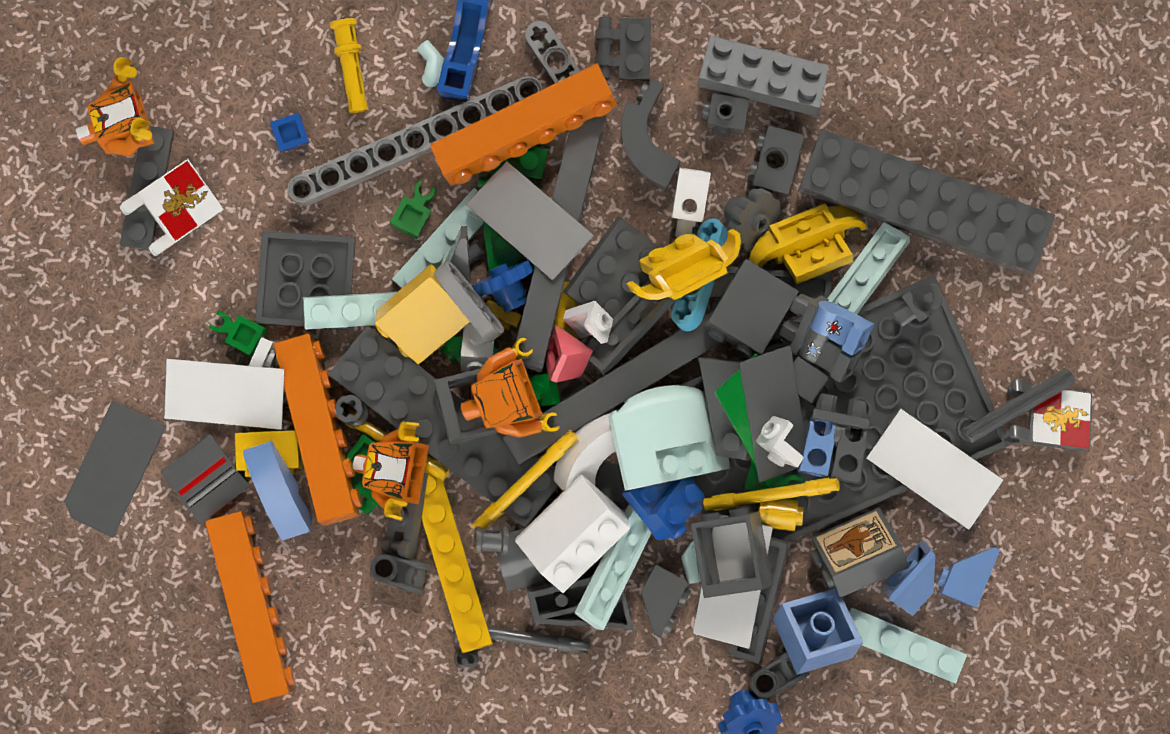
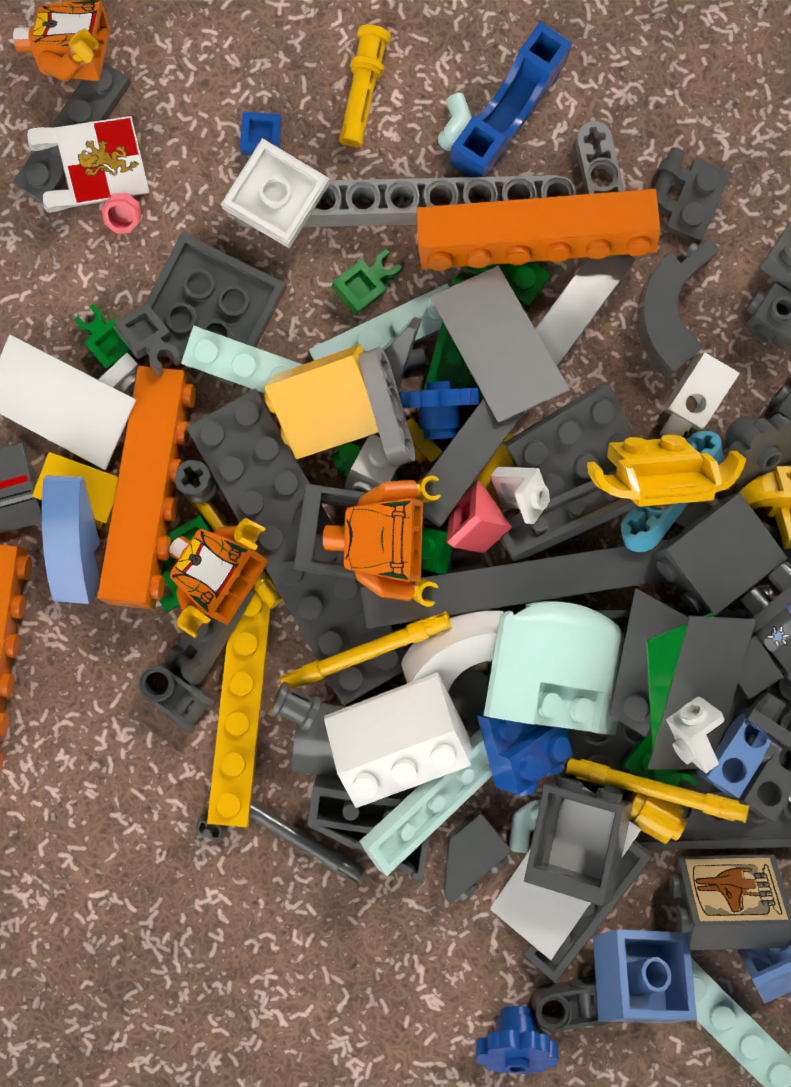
camera: 20 degrees right, 0 degrees up
(211, 234) = (121, 213): none -> coral tile
(270, 318) = (148, 335): none -> dark grey plate
(322, 176) = (275, 193): none -> white tile

